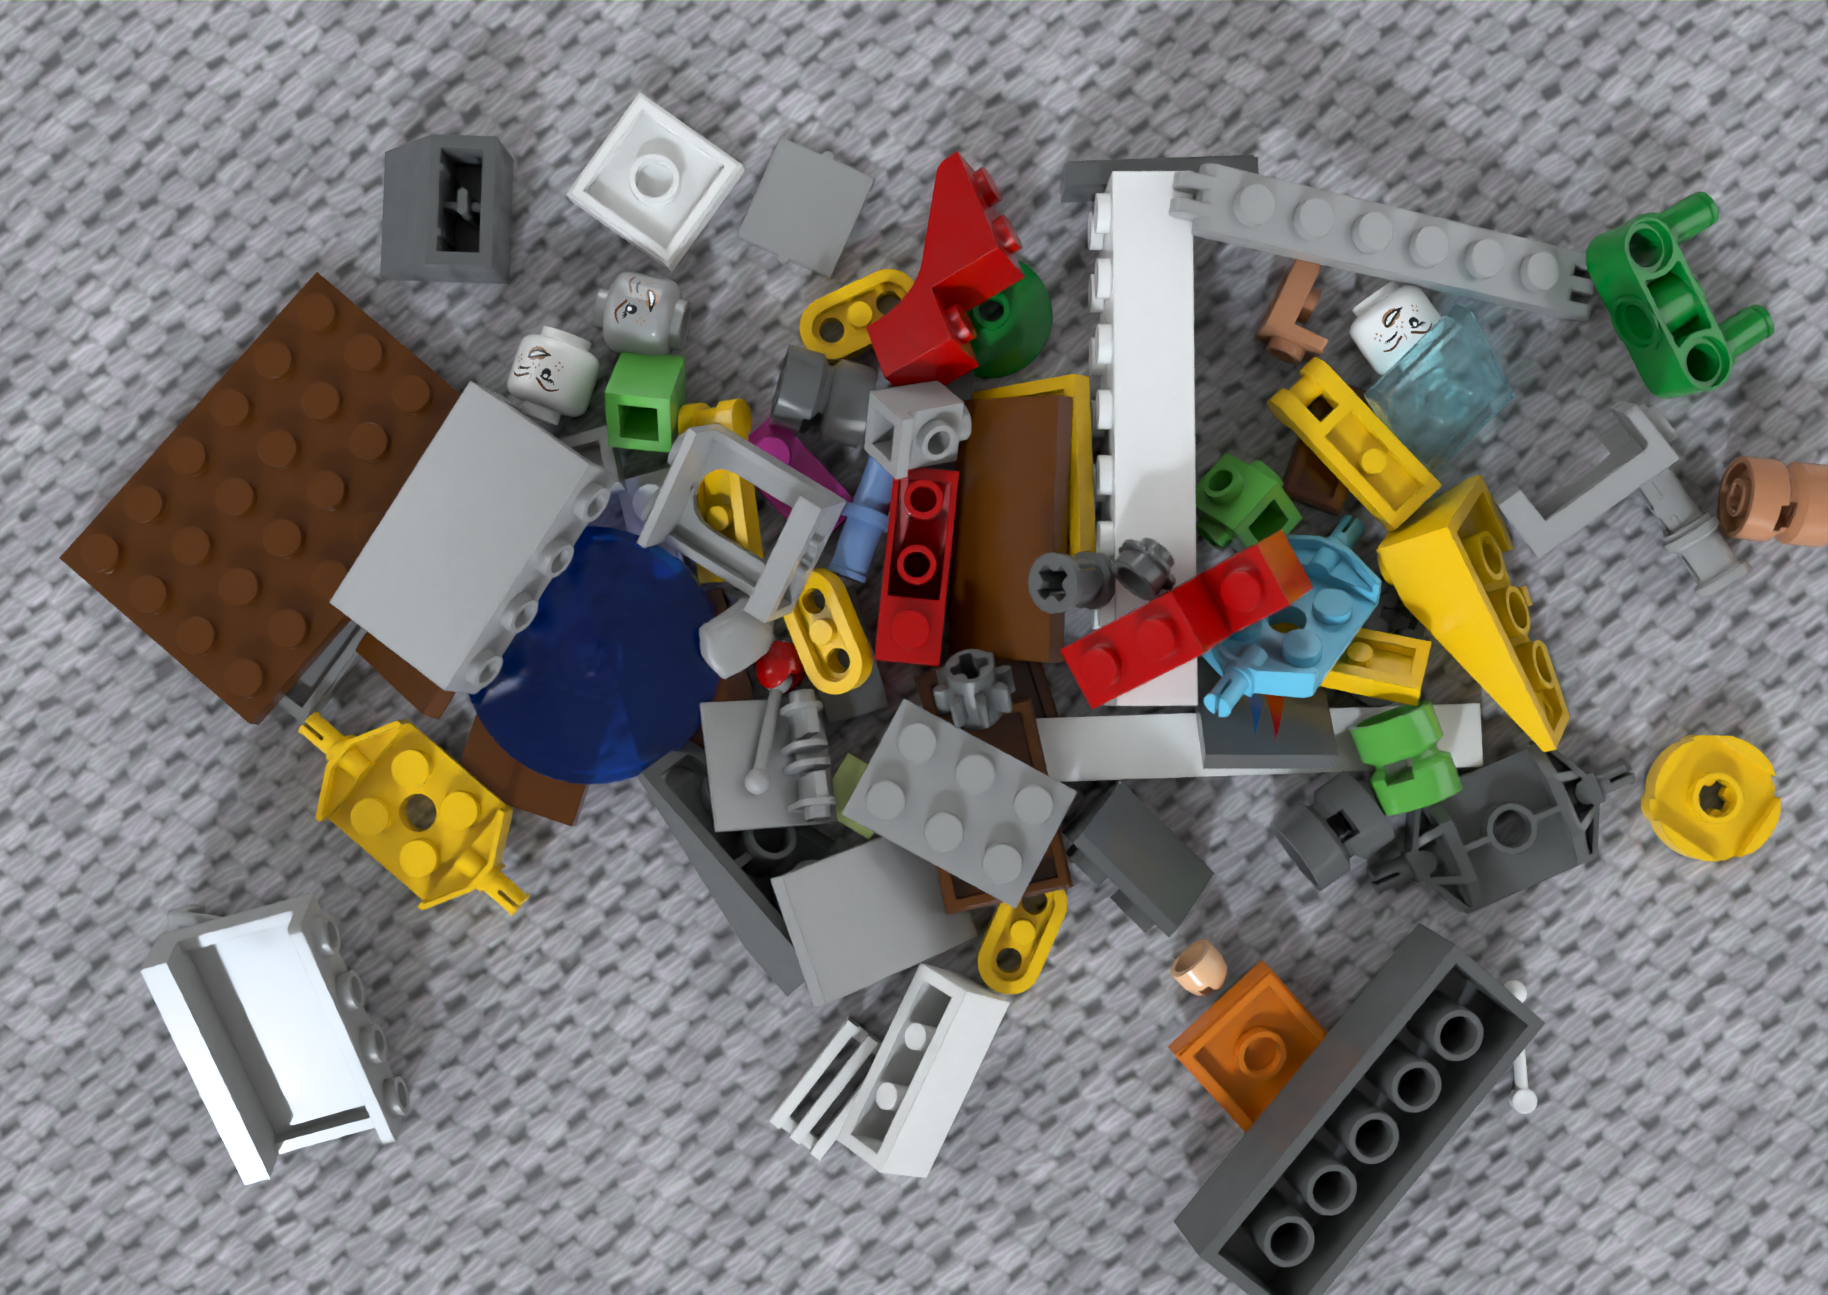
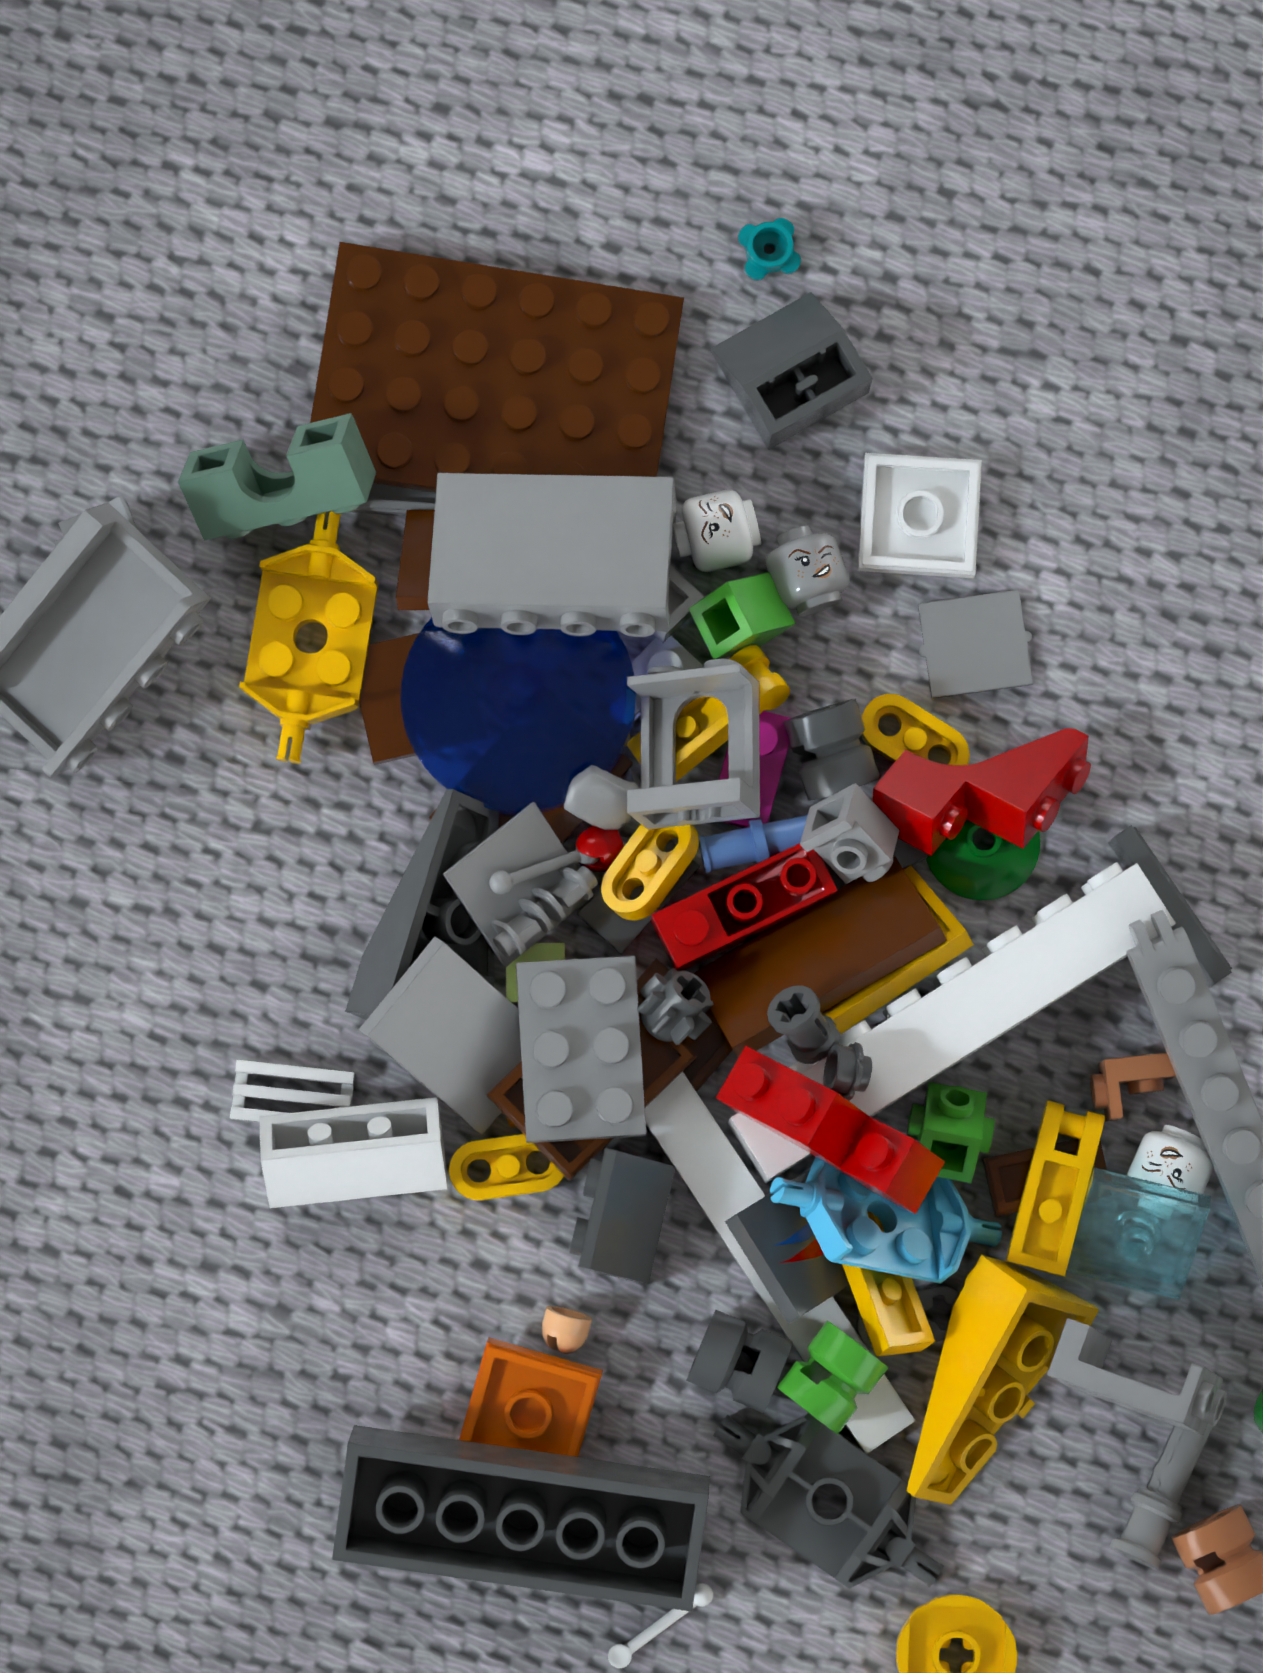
camera: 55 degrees right, 5 degrees down
(239, 803) = (236, 495): none -> sand green arch
(306, 156) = (757, 237): none -> teal plate

